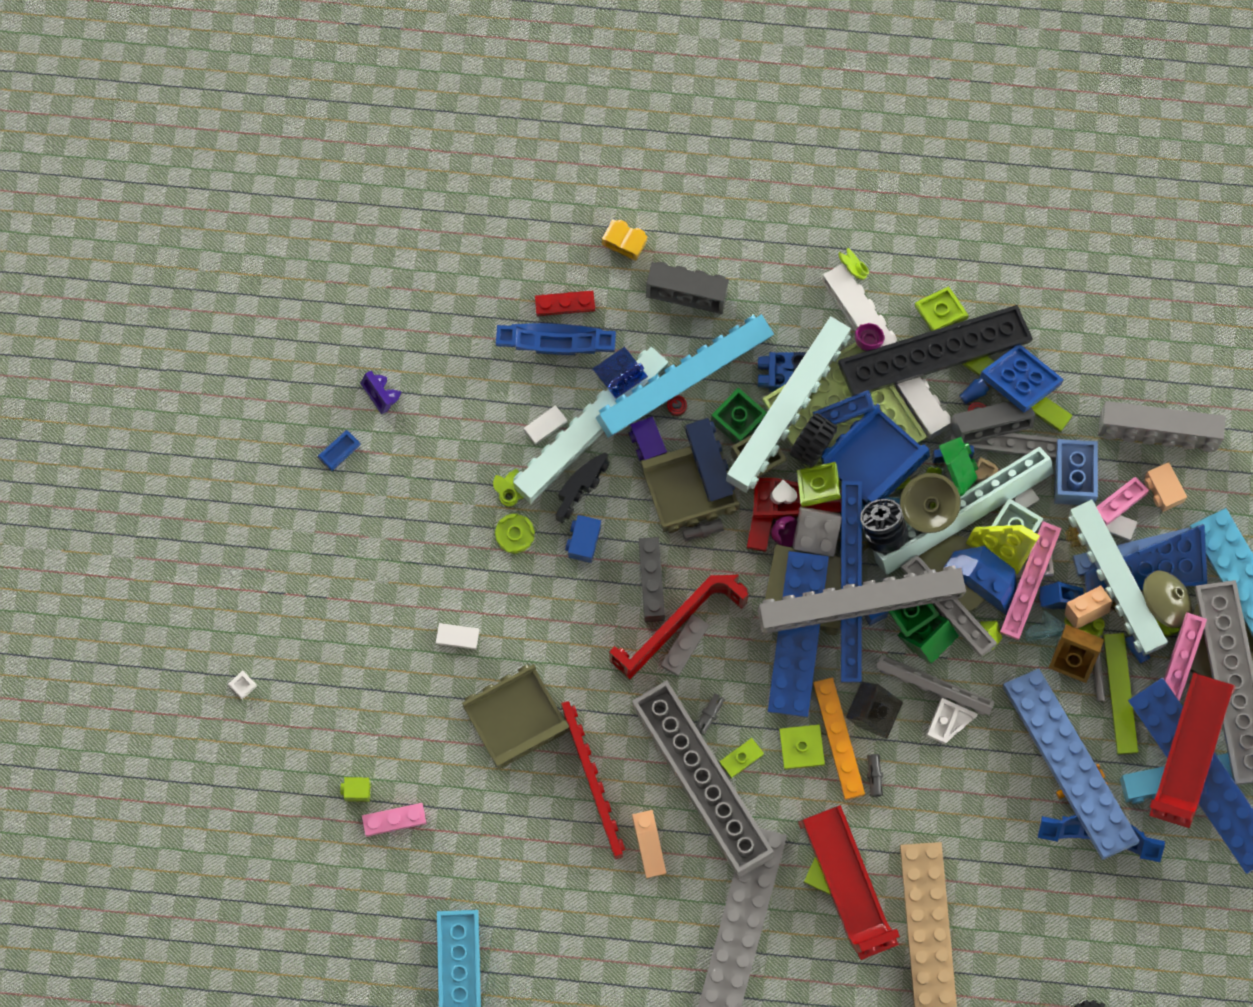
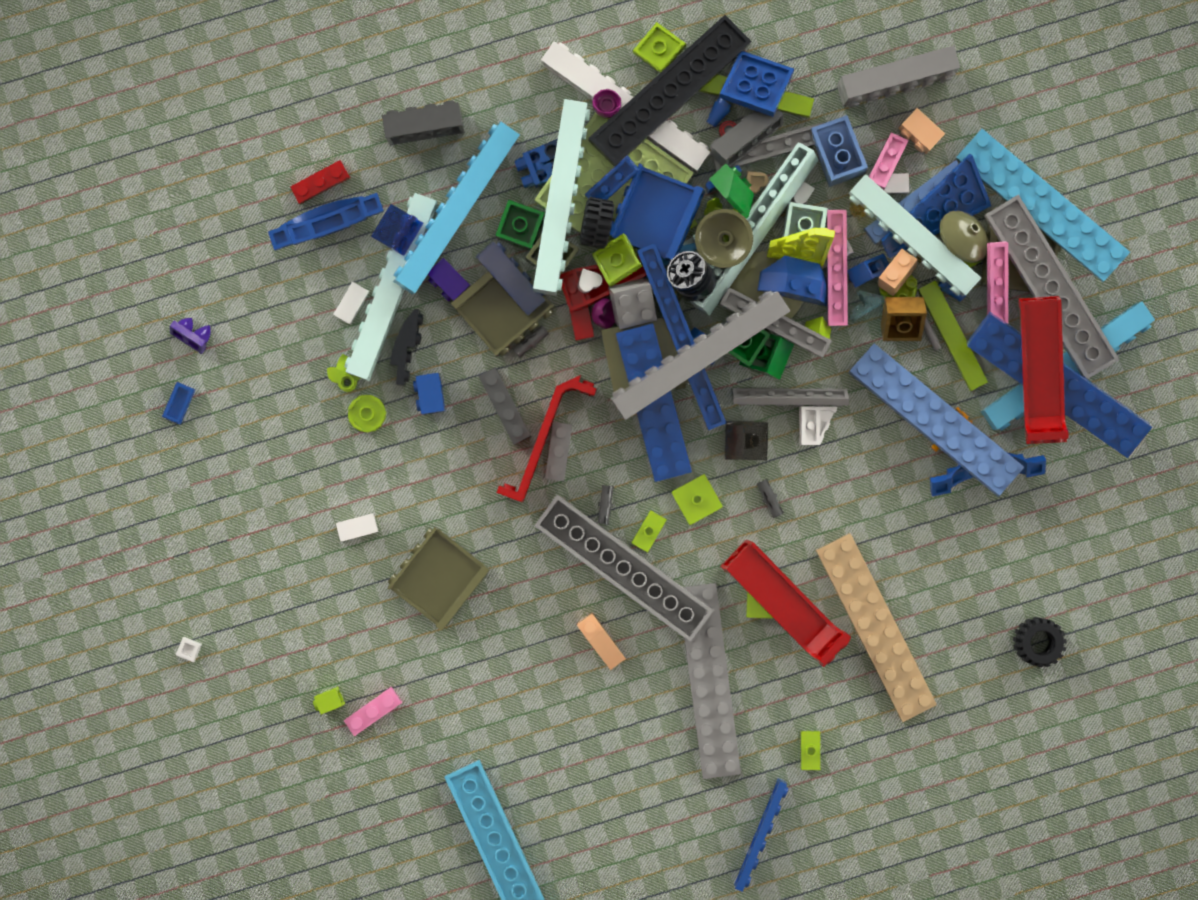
camera: 25 degrees left, 15 degrees up
(596, 787) = (534, 611): red plate -> none
(624, 239) = (348, 100): yellow brick -> none
(677, 406) = (461, 236): red tile -> none
(838, 738) = (725, 478): light orange plate -> none
(854, 266) = (566, 39): lime plate -> none

